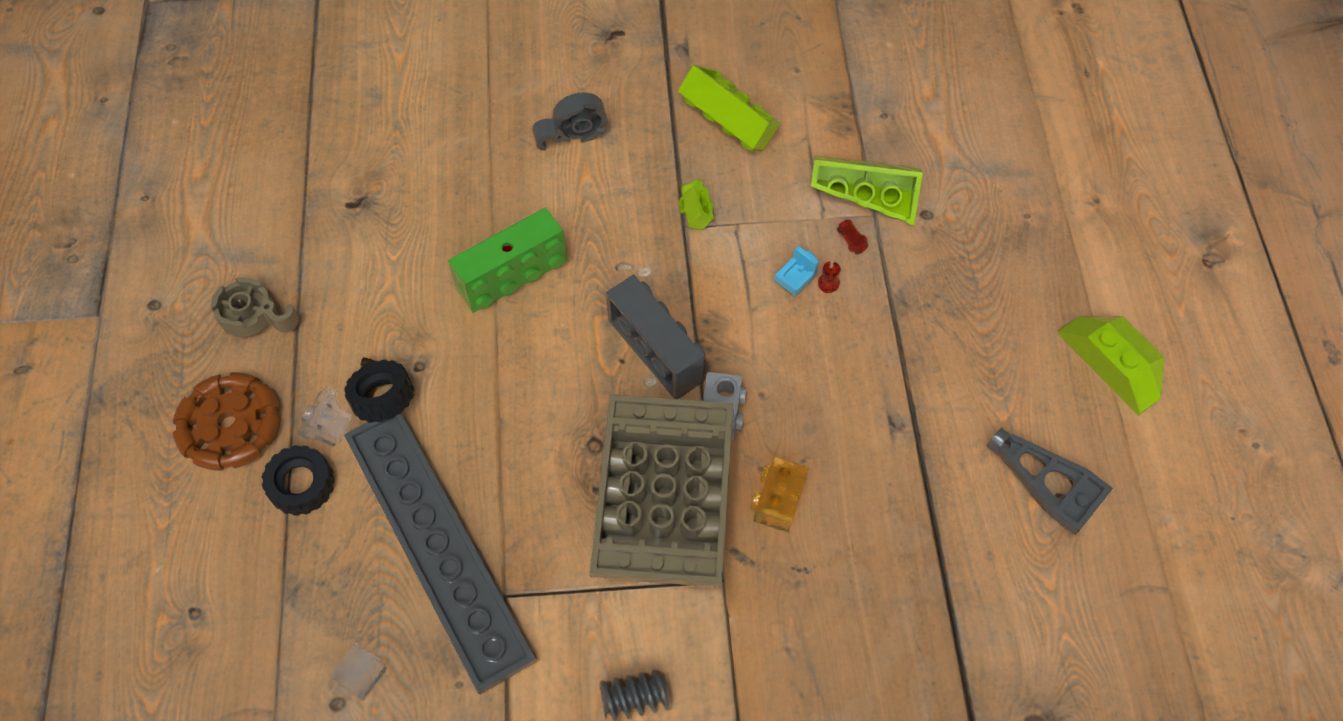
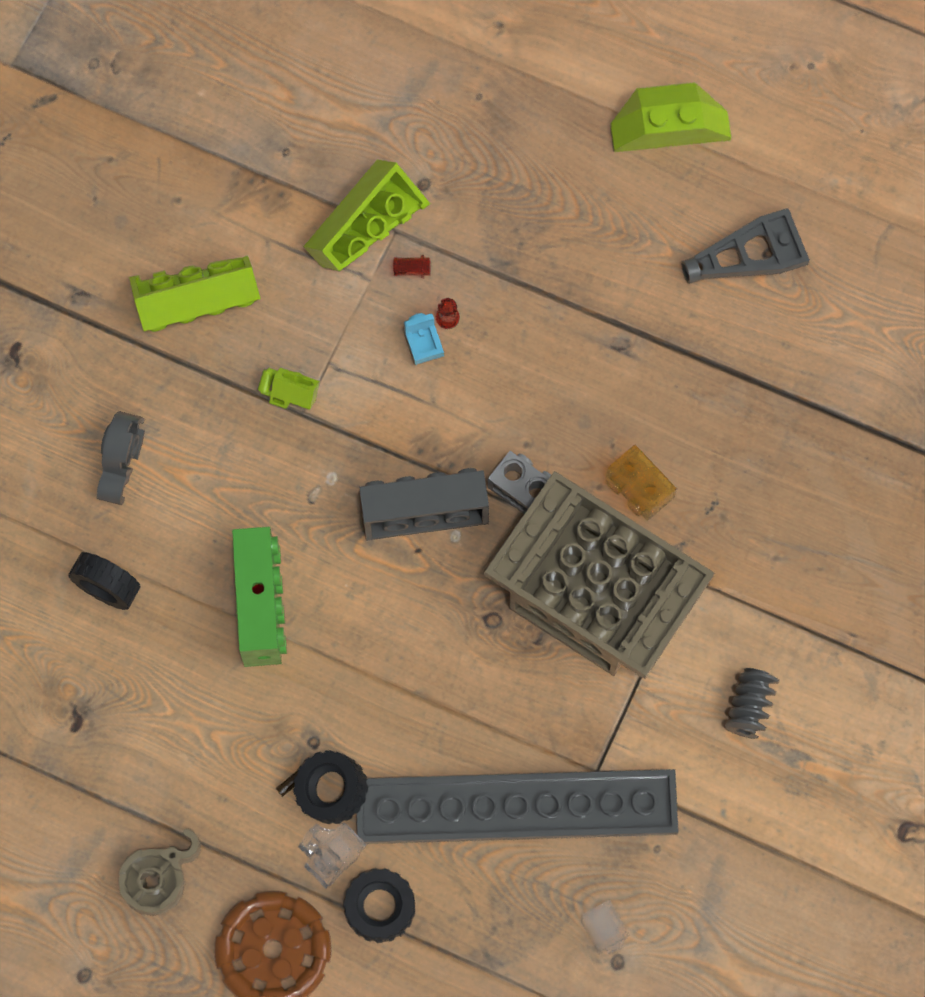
camera: 60 degrees left, 10 degrees up
(464, 156) = (104, 580): none -> black tyre

